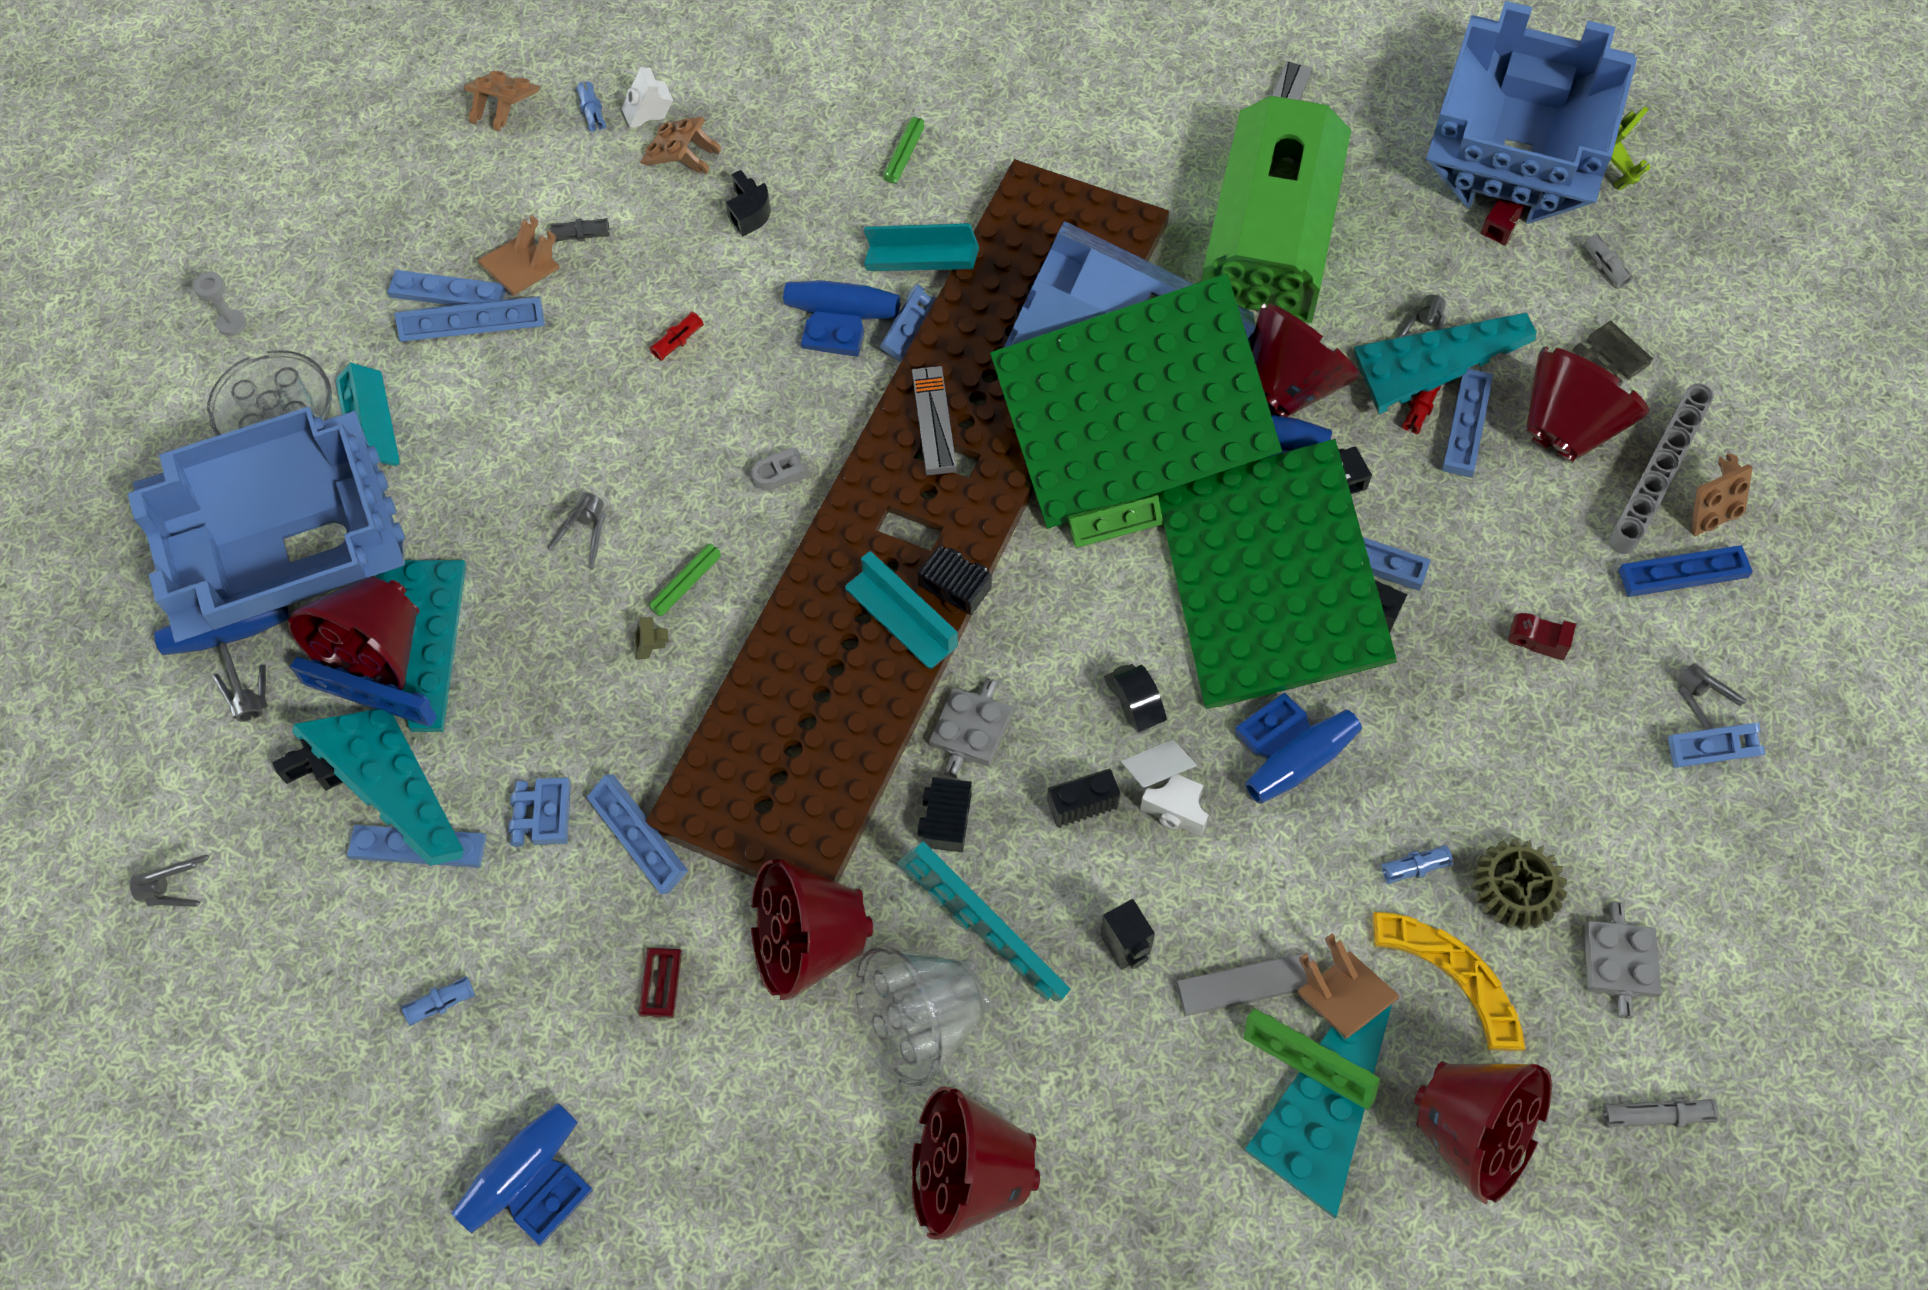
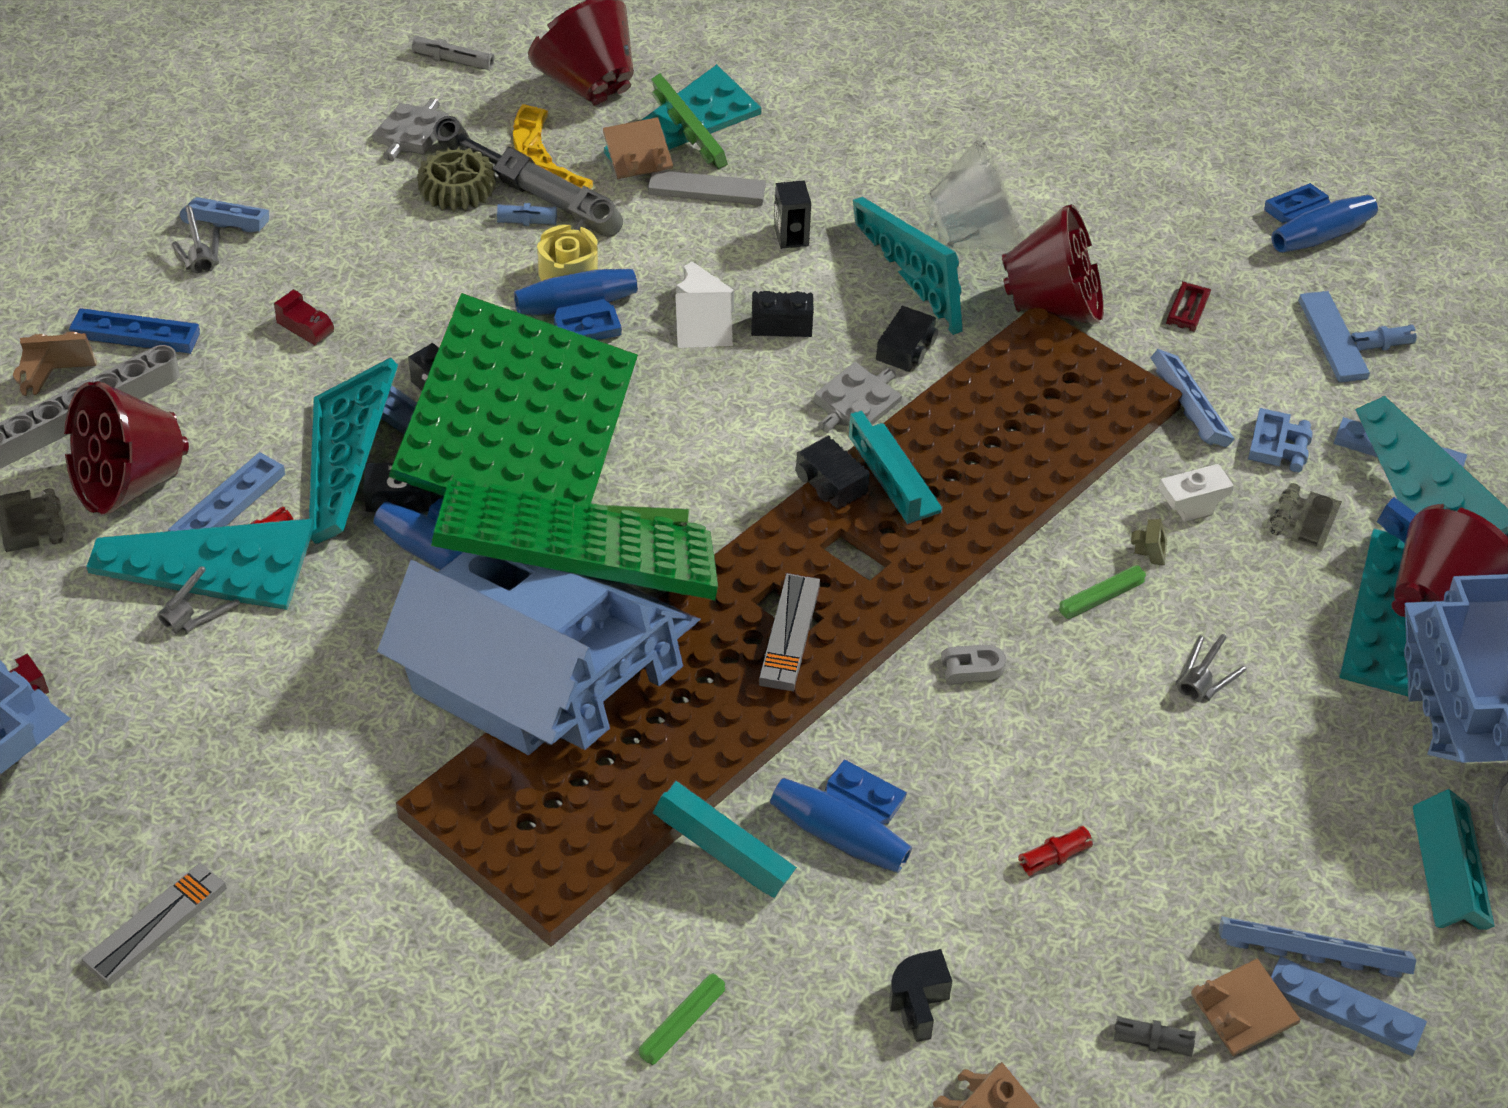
camera: 165 degrees left, 15 degrees down
(495, 991) = (1333, 336): none -> medium blue tile
(498, 722) = (1315, 521): none -> clear smoke plate
(616, 699) = (1196, 491): none -> white brick
(907, 323) = (767, 773): medium blue plate -> none
(969, 1165) = (974, 108): dark red cone -> none
(1137, 696) = (698, 372): black brick -> none
(1275, 229) = (340, 711): bright green panel -> none
(1294, 362) = (366, 563): dark red cone -> none
(1332, 811) = (566, 252): none -> light yellow brick
(1413, 511) = (341, 441): none -> teal wing
(1458, 912) = (523, 174): none -> dark grey piece

